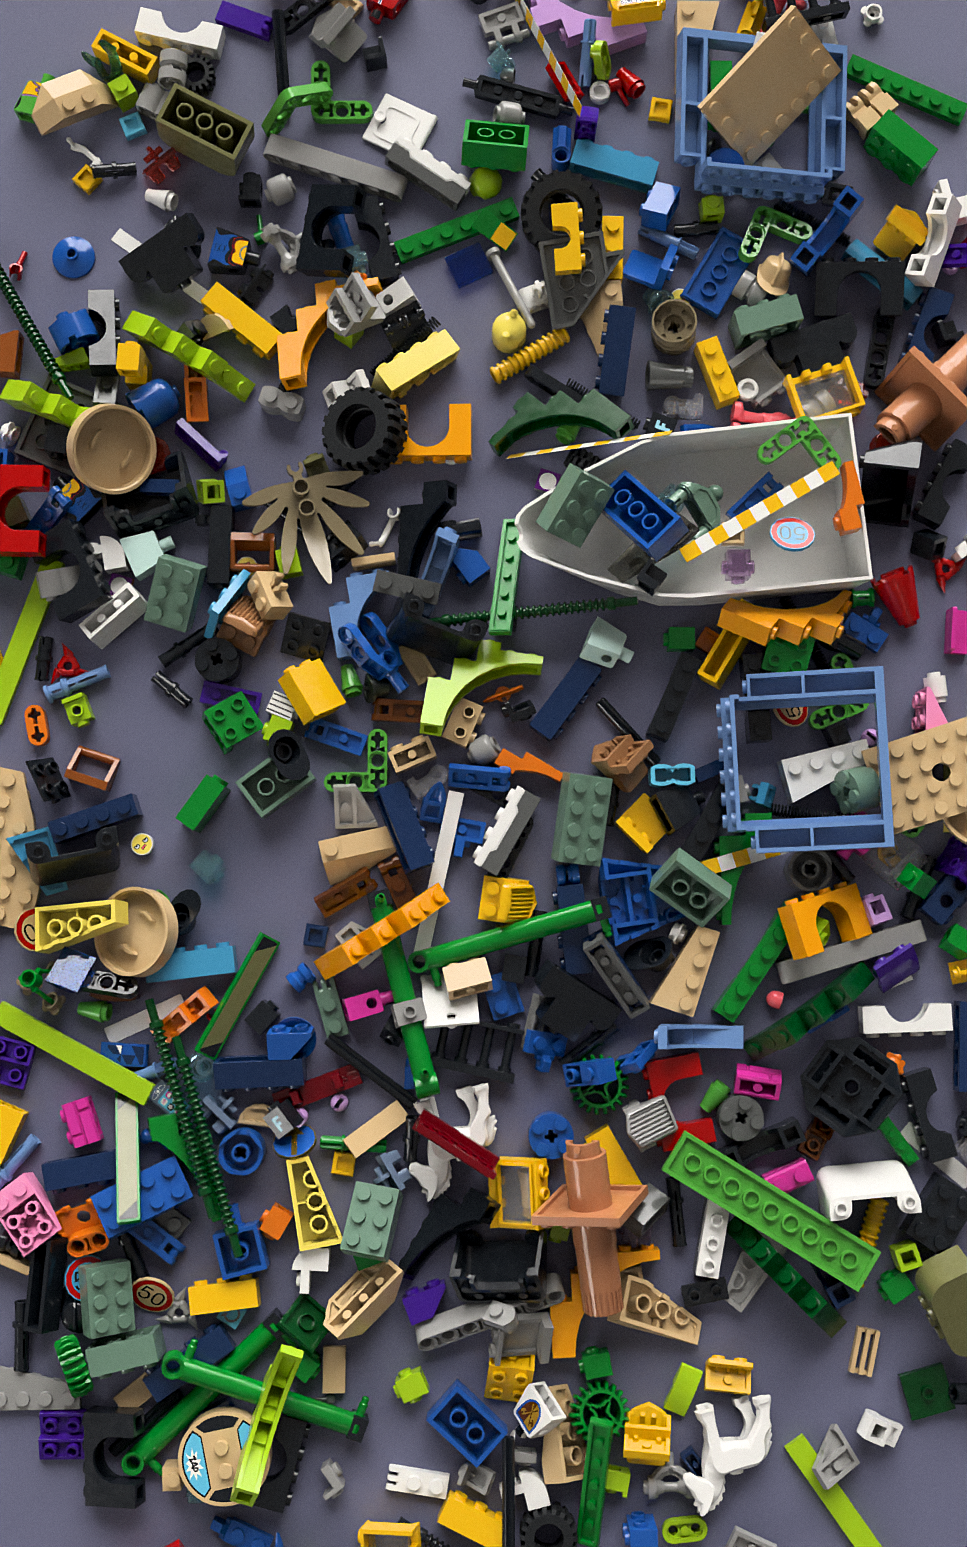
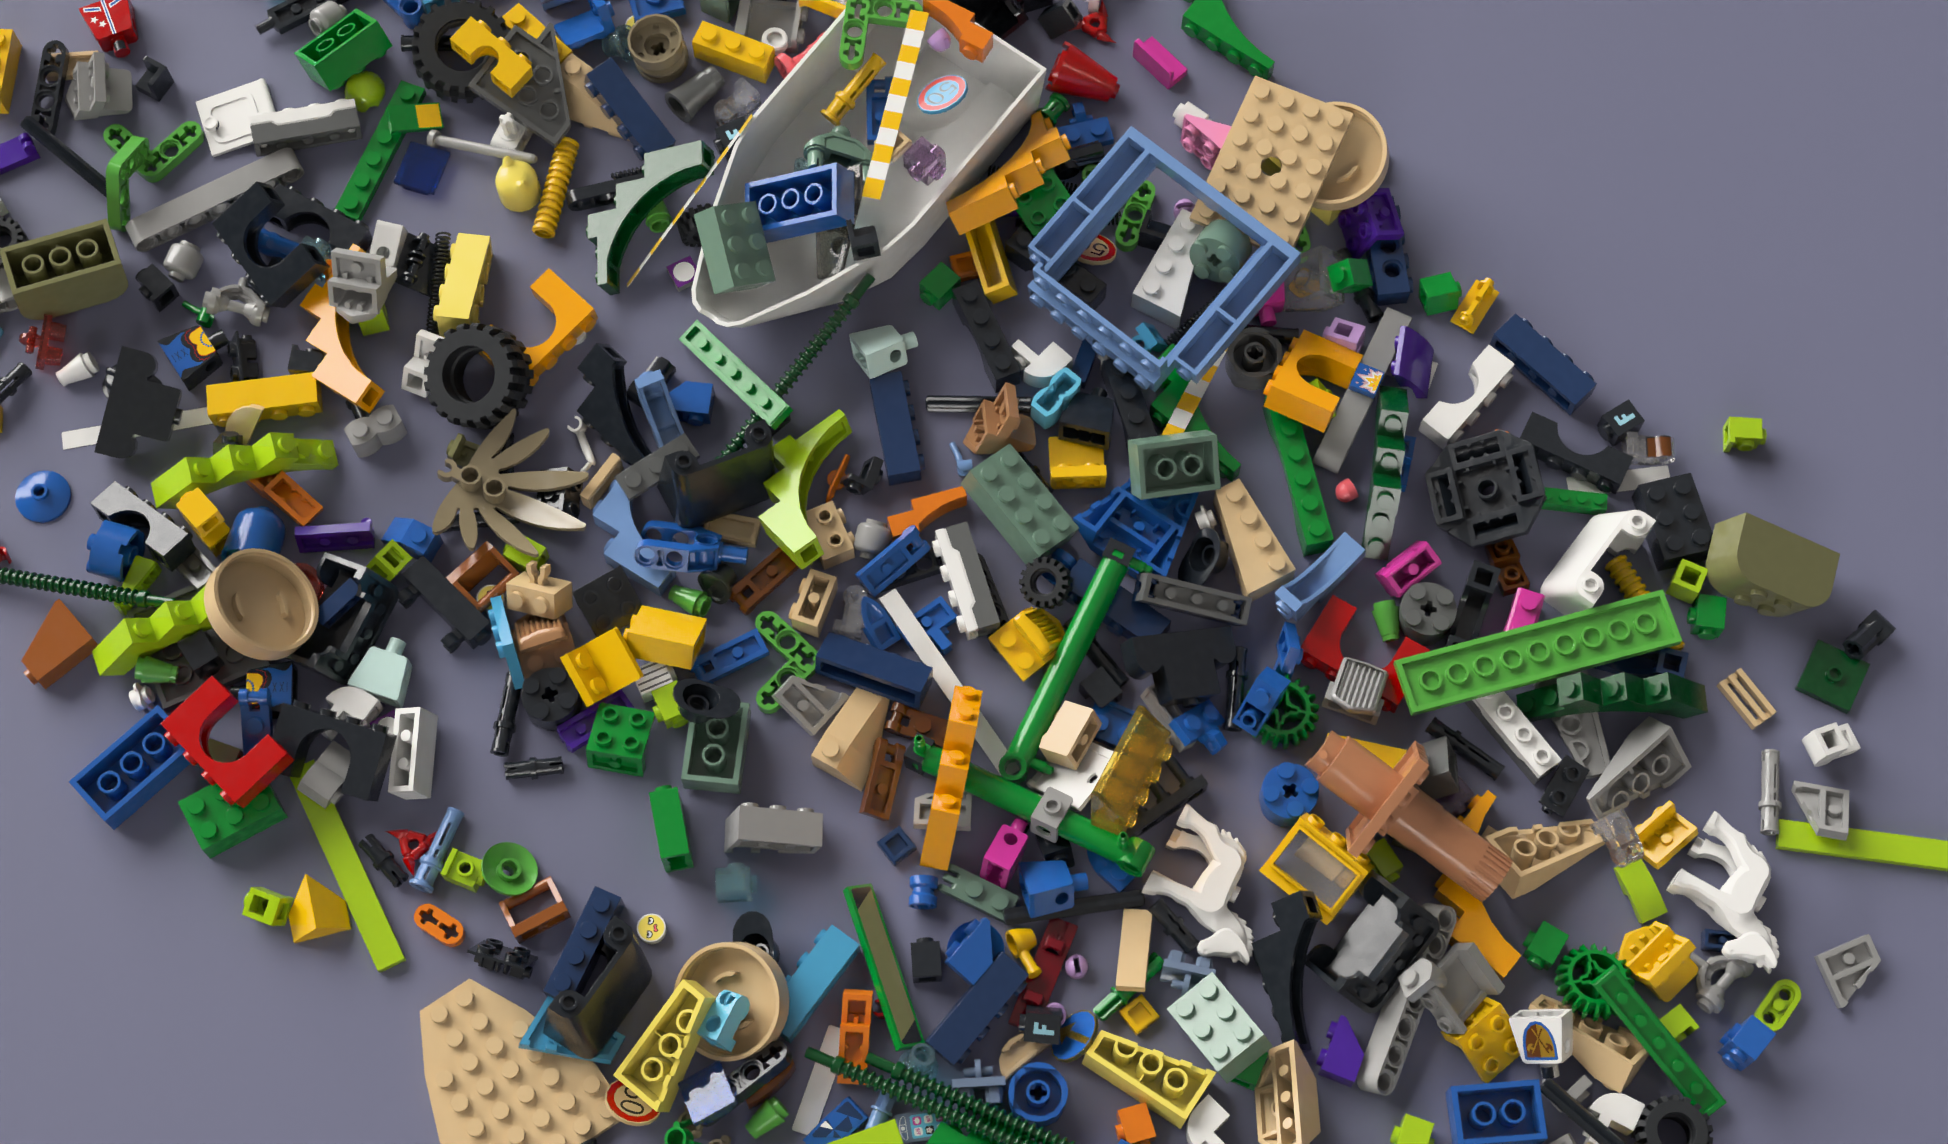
camera: 45 degrees left, 15 degrees down
(27, 426) = (155, 671): none -> bright green cone
(111, 736) = (516, 861): none -> bright green dish
(120, 939) = (724, 1019): none -> medium azure leg
(175, 593) = (449, 676): sand green brick -> none
(257, 672) = (602, 666): none -> yellow bracket
(258, 860) = (773, 829): none -> light grey wedge
(323, 1060) = (1020, 942): none -> yellow bar
(367, 1048) = (1049, 886): none -> blue torso
(457, 1143) = (1218, 878): dark red fence -> none
(470, 1039) = (1130, 773): none -> clear yellow slope
(534, 879) = (1030, 578): none -> black tyre
(579, 761) = (963, 466): none -> medium blue hand
(686, 751) = (1040, 368): none -> white brick
(701, 1352) = (1619, 838): none -> clear leg
(741, 474) = (845, 99): none -> yellow pin
(767, 1325) = (1643, 763): none -> light grey wedge
(815, 1415) = (1770, 801): none -> light grey pin
(828, 498) = (940, 40): none -> lavender hinge
(856, 951) = (1366, 380): none -> tile

